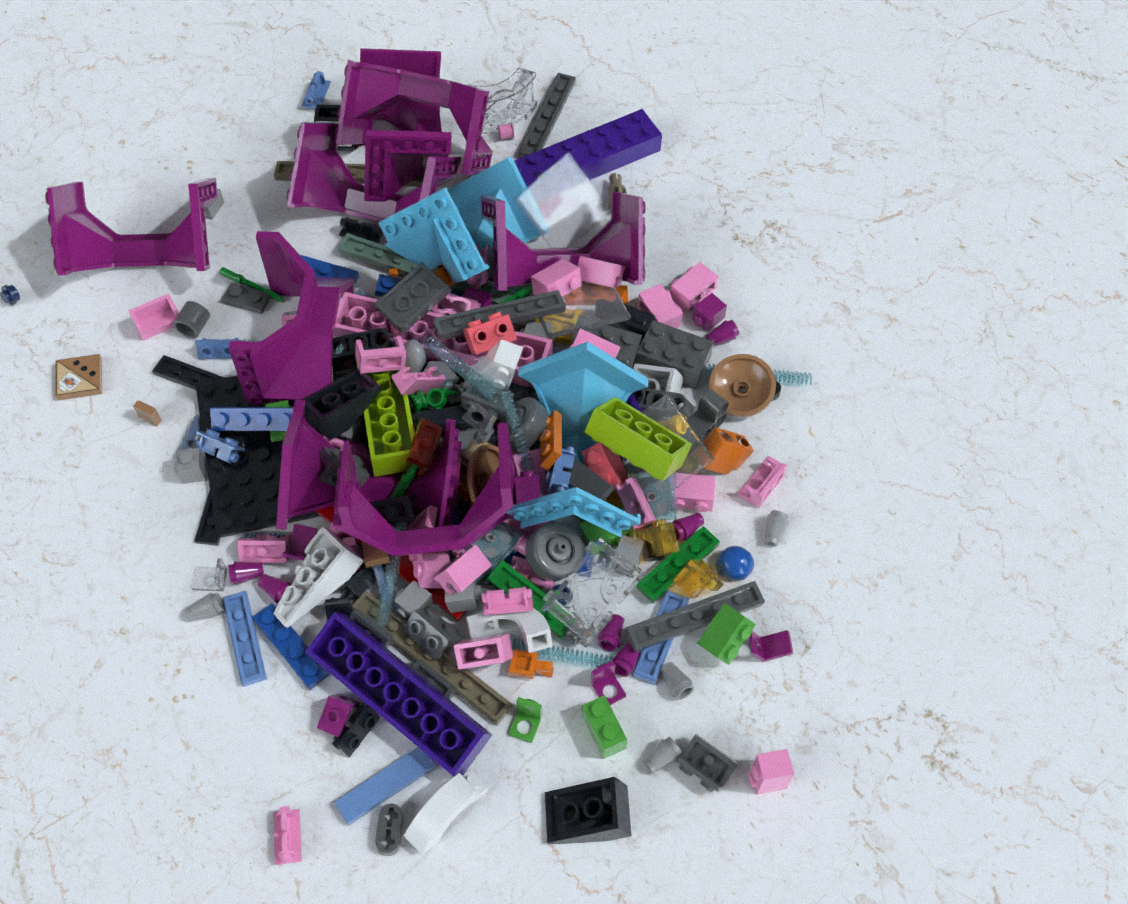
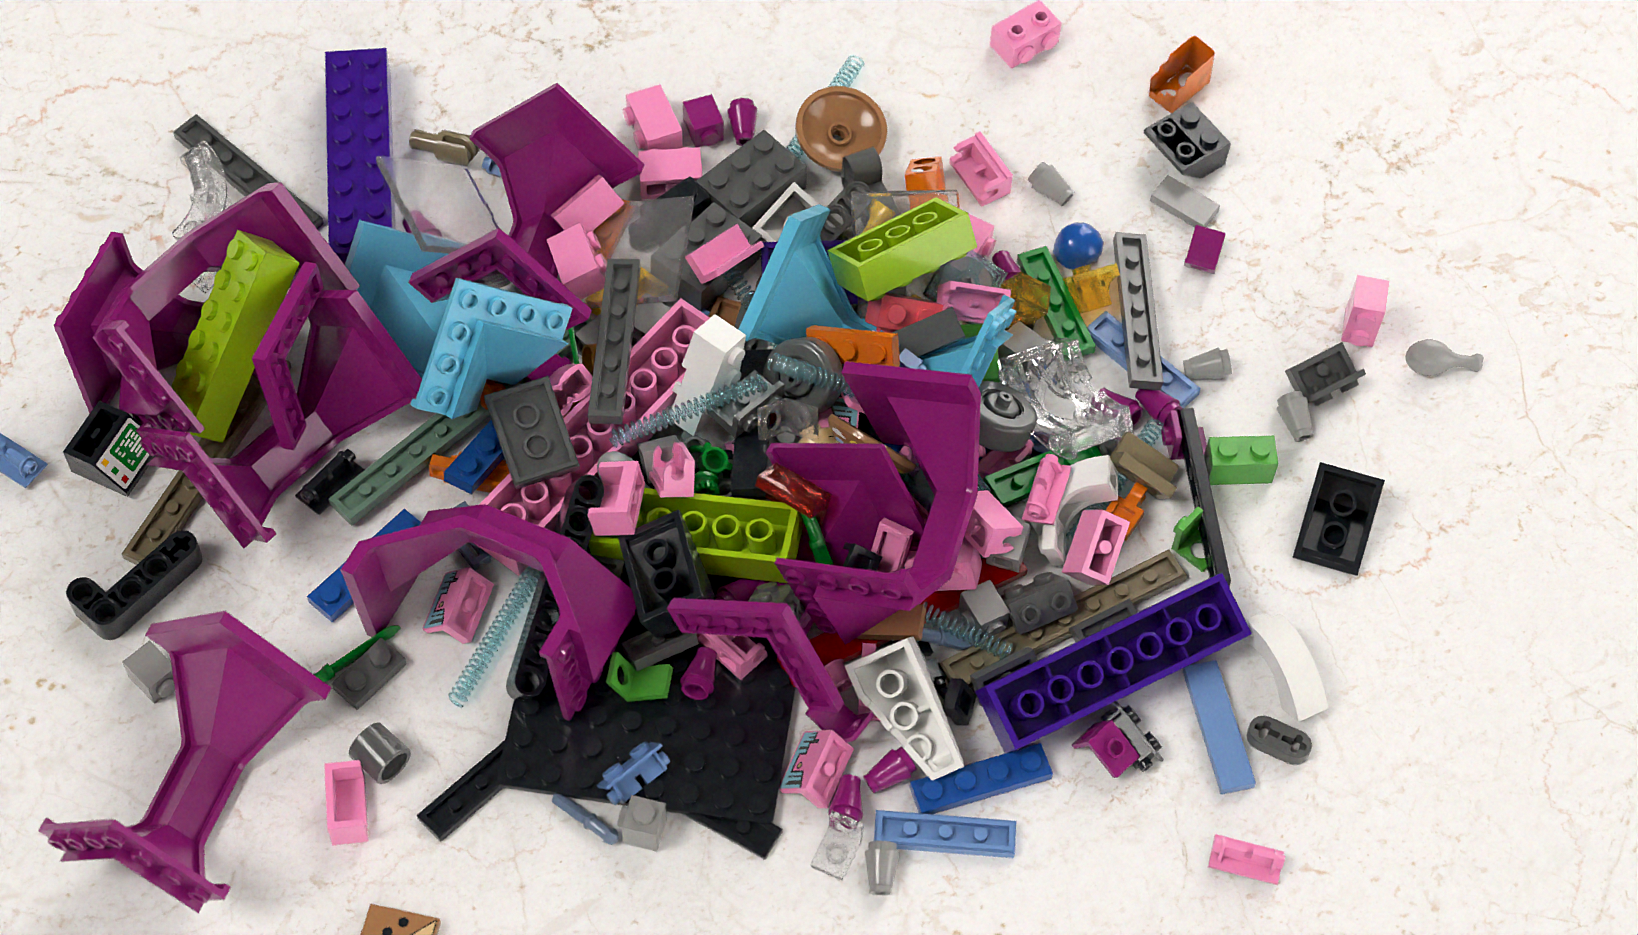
camera: 70 degrees left, 0 degrees up
(147, 413) = (519, 860): medium nougat tile -> none
(213, 348) = (453, 721): medium blue hinge -> none
(245, 173) = (176, 556): none -> black beam
(250, 418) = (619, 706): plate -> none
(433, 118) = (230, 330): none -> lime brick
(486, 334) = (649, 357): coral brick -> none
(555, 713) = (1202, 495): none -> black tile
(565, 662) = (1145, 465): none -> dark tan panel
(726, 634) = (1179, 284): bright green brick -> none
(765, 843) = (1433, 357): none -> light grey piece
(810, 621) = (1184, 202): none -> light grey tile
(856, 601) = (1190, 141): none -> black slope
(892, 468) = (1025, 34): none -> bright pink brick
(915, 586) = (1200, 61): none -> orange piece

